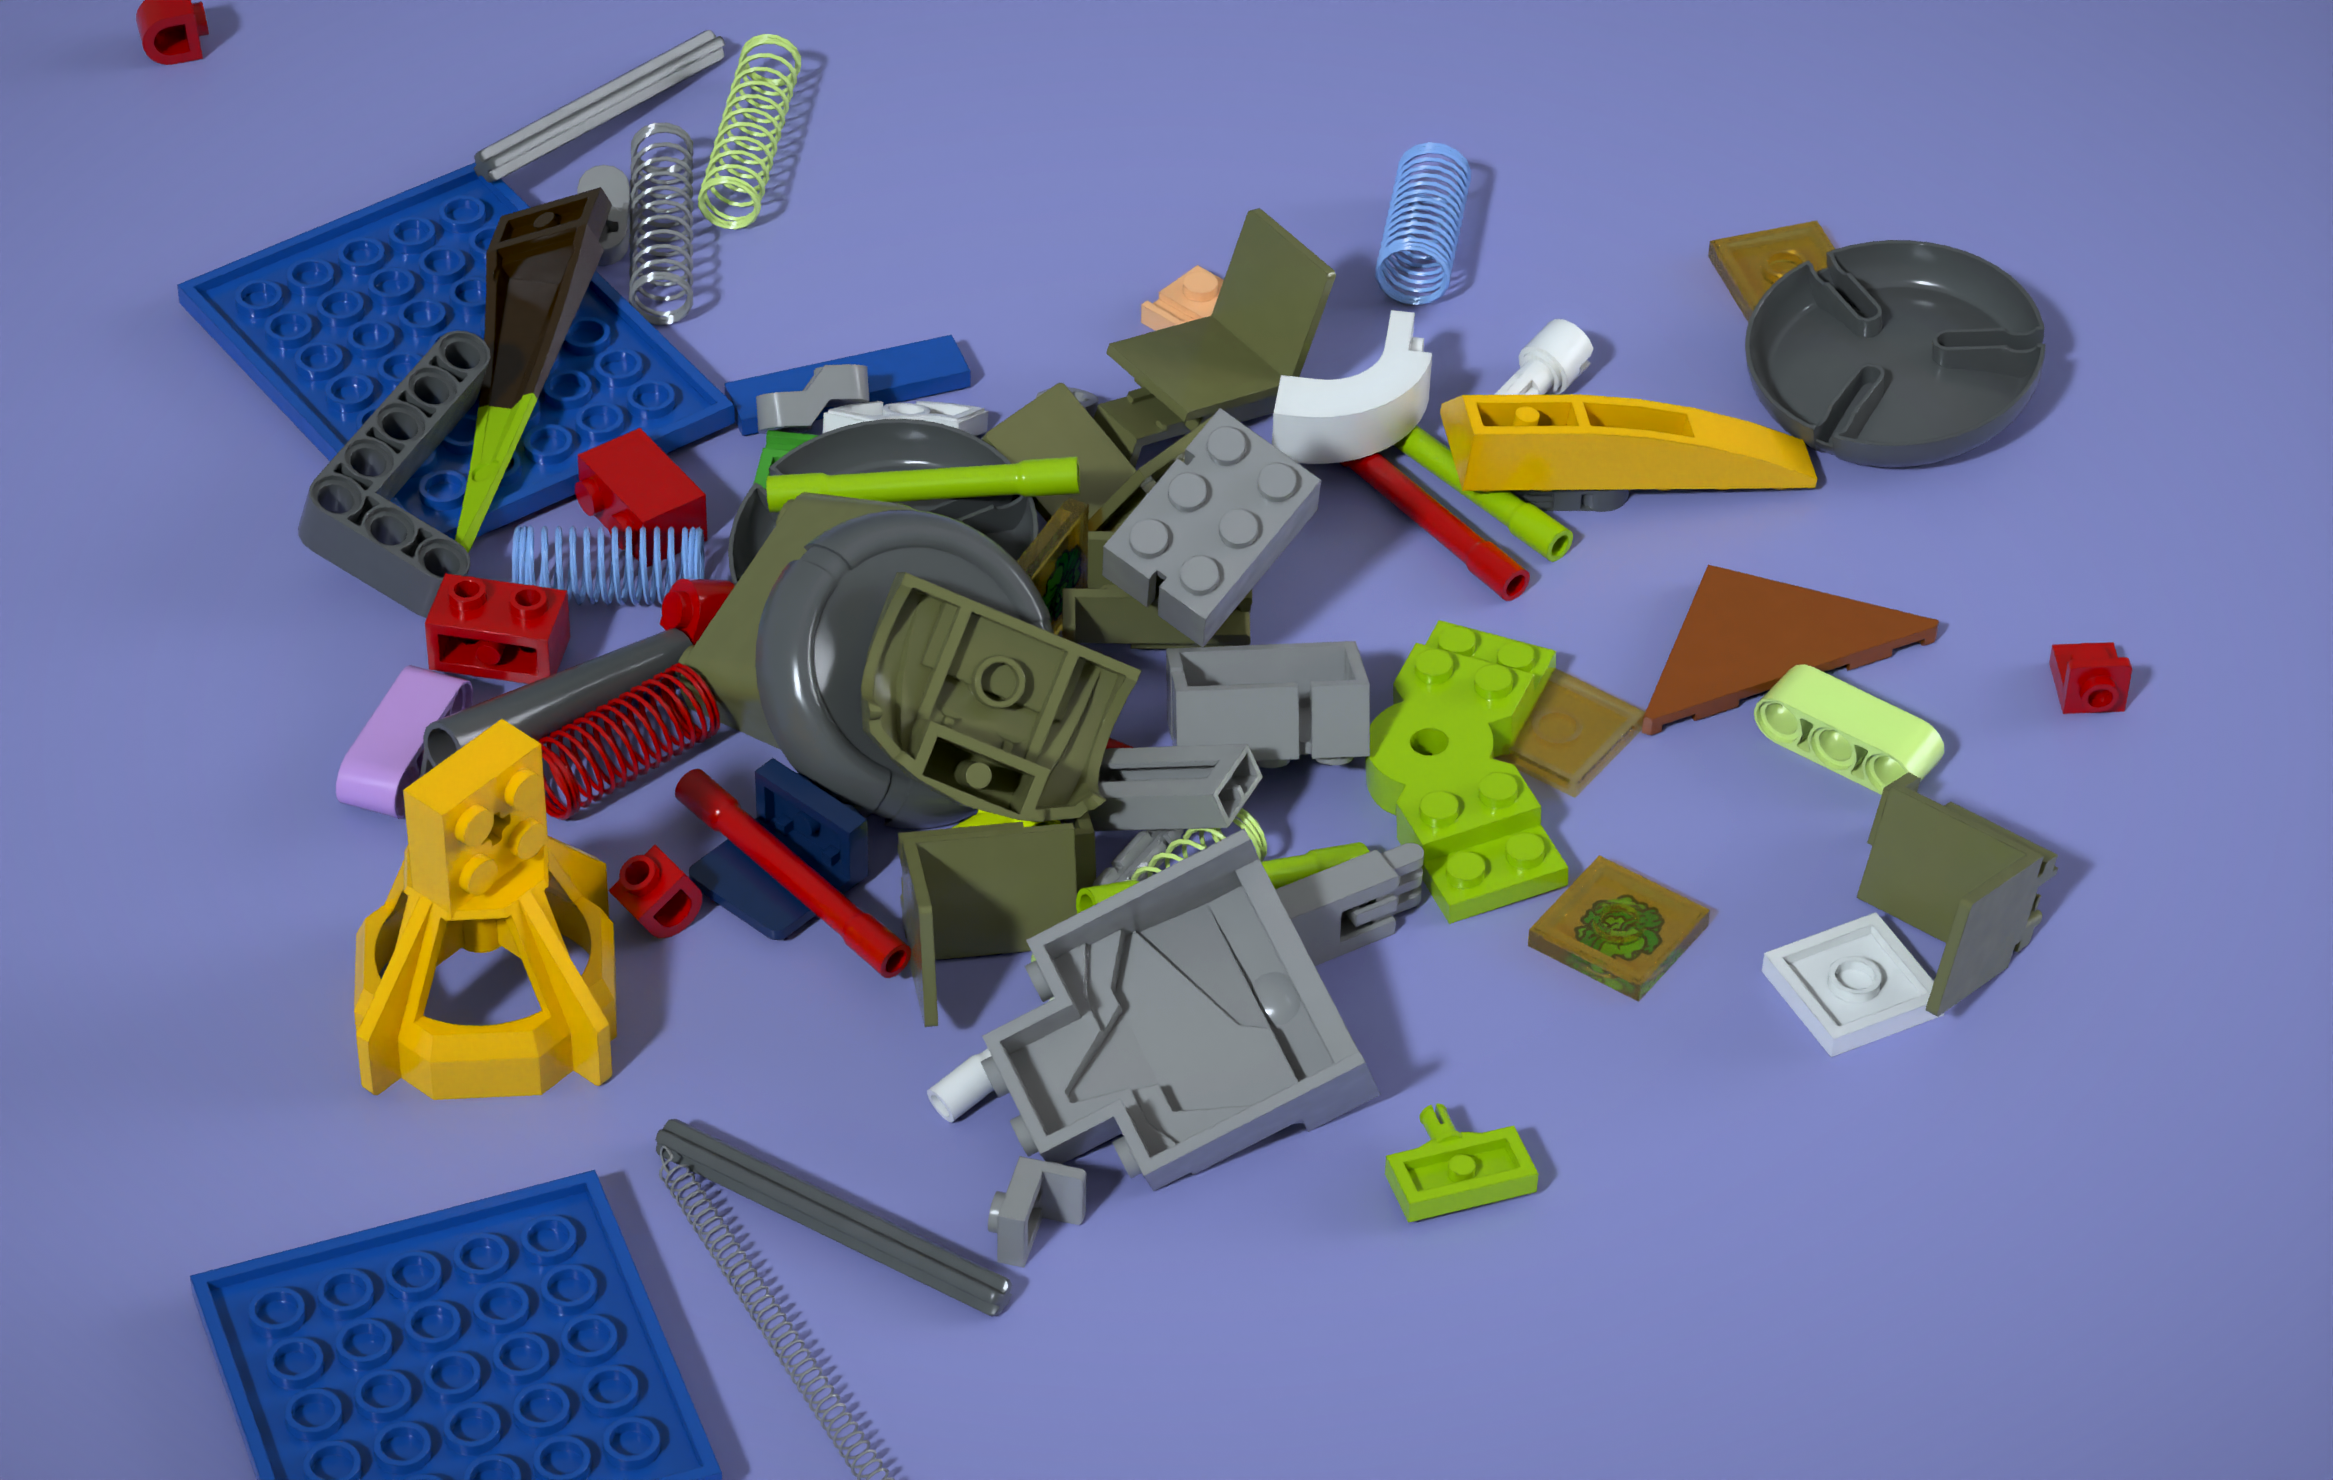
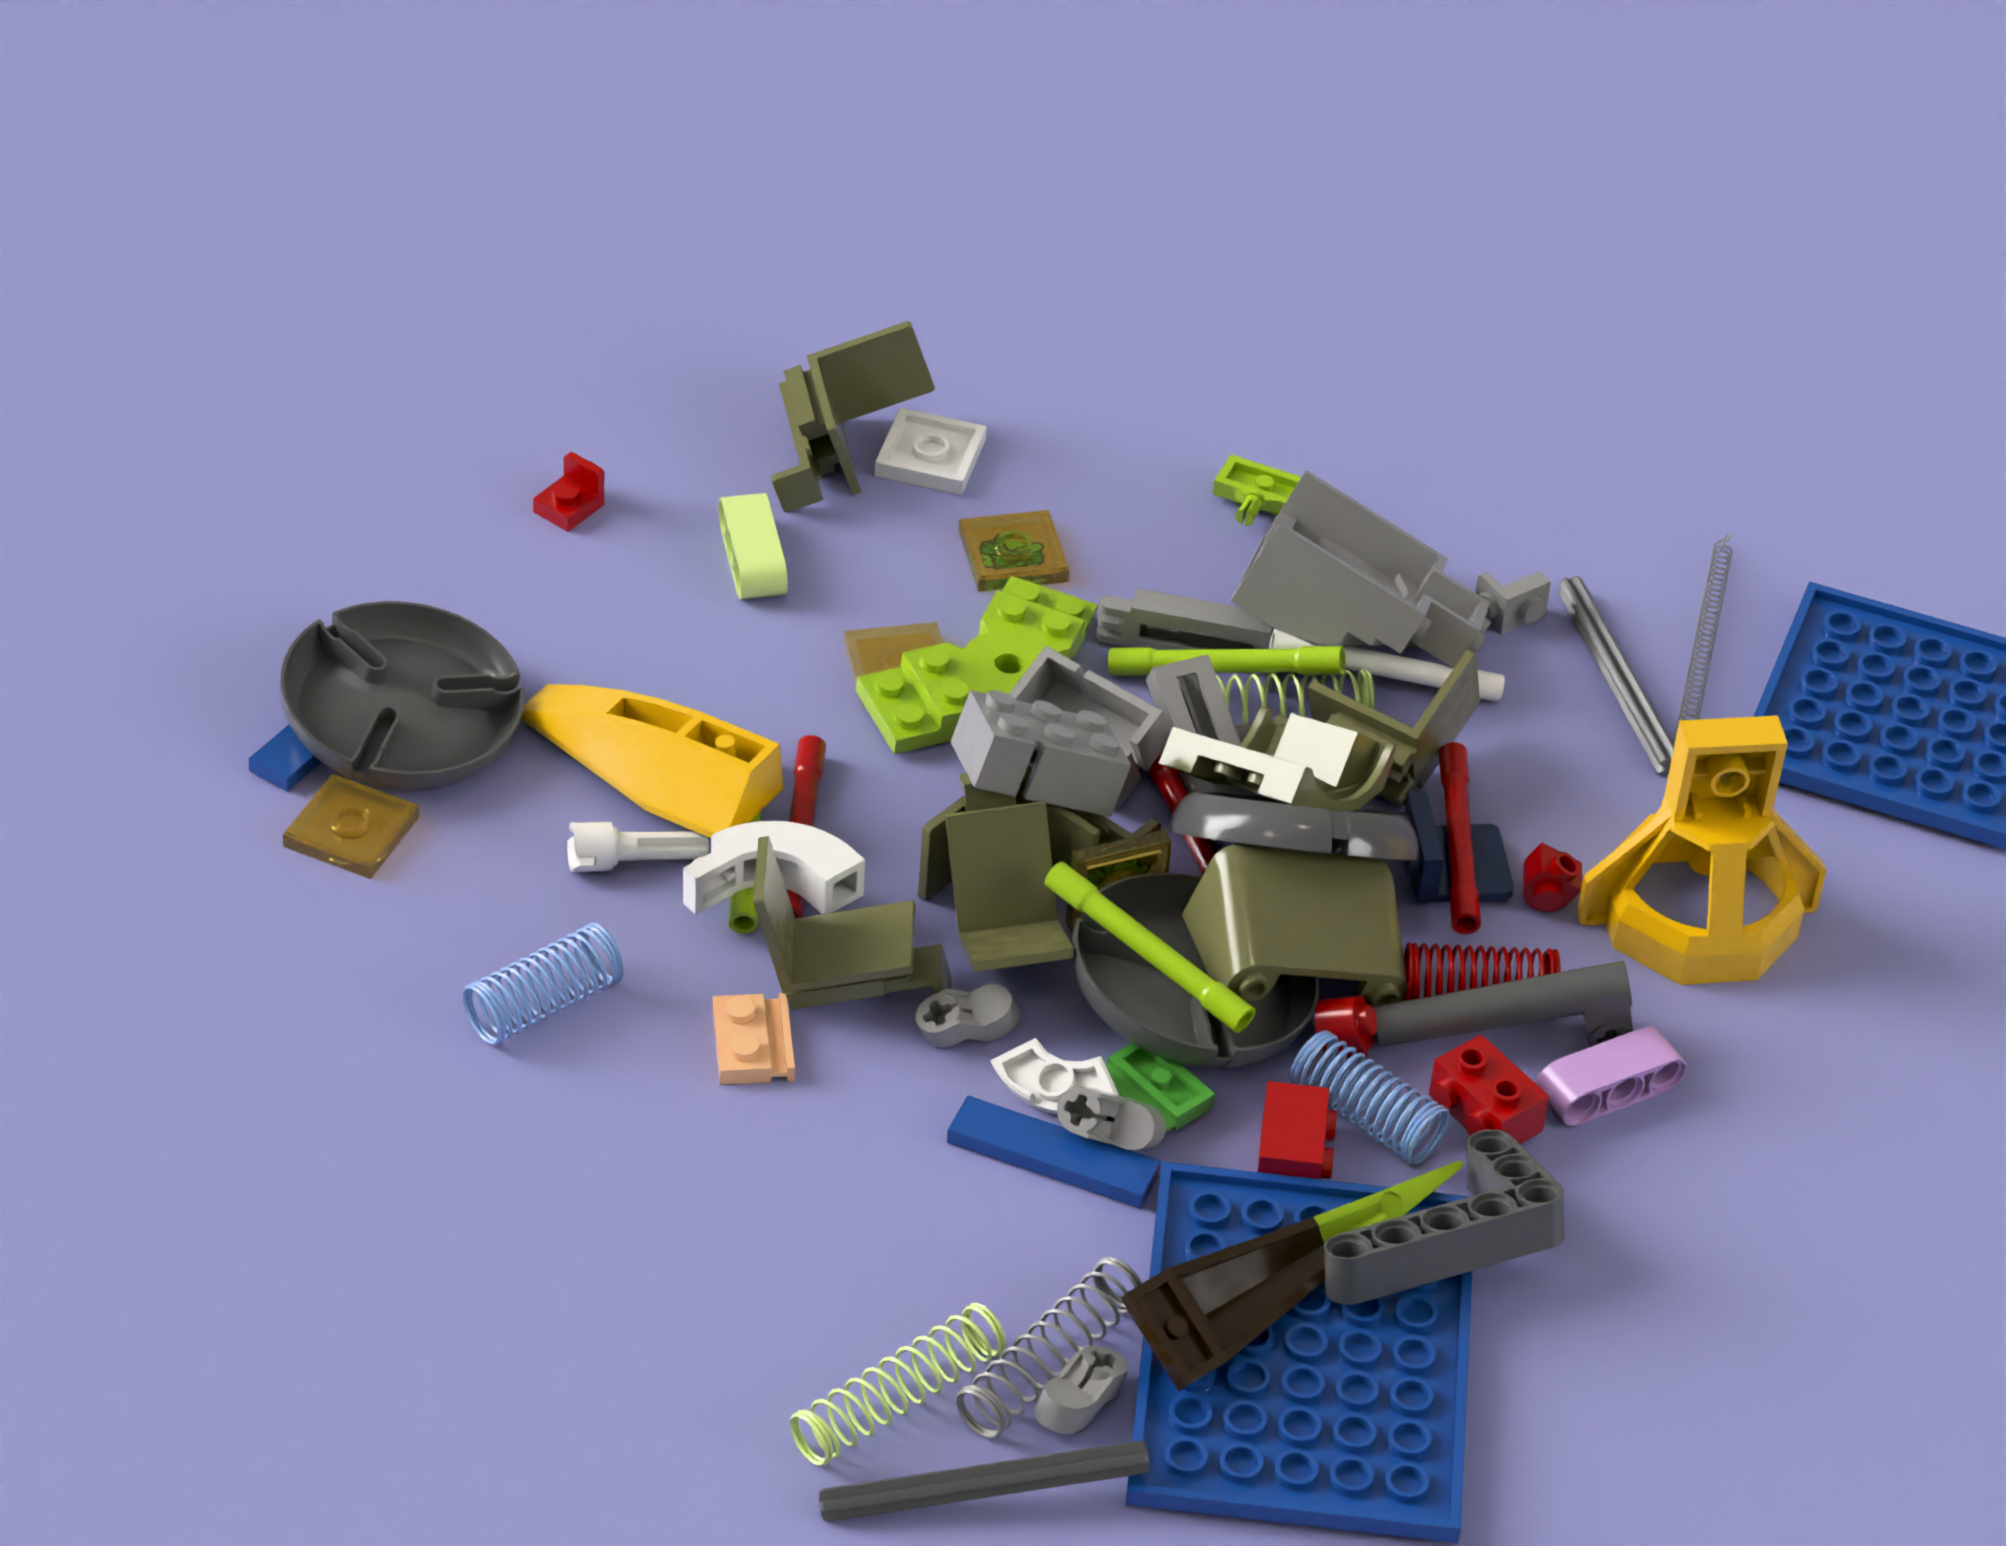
camera: 140 degrees left, 0 degrees up
(1754, 629) = (717, 633): dark orange tile -> none

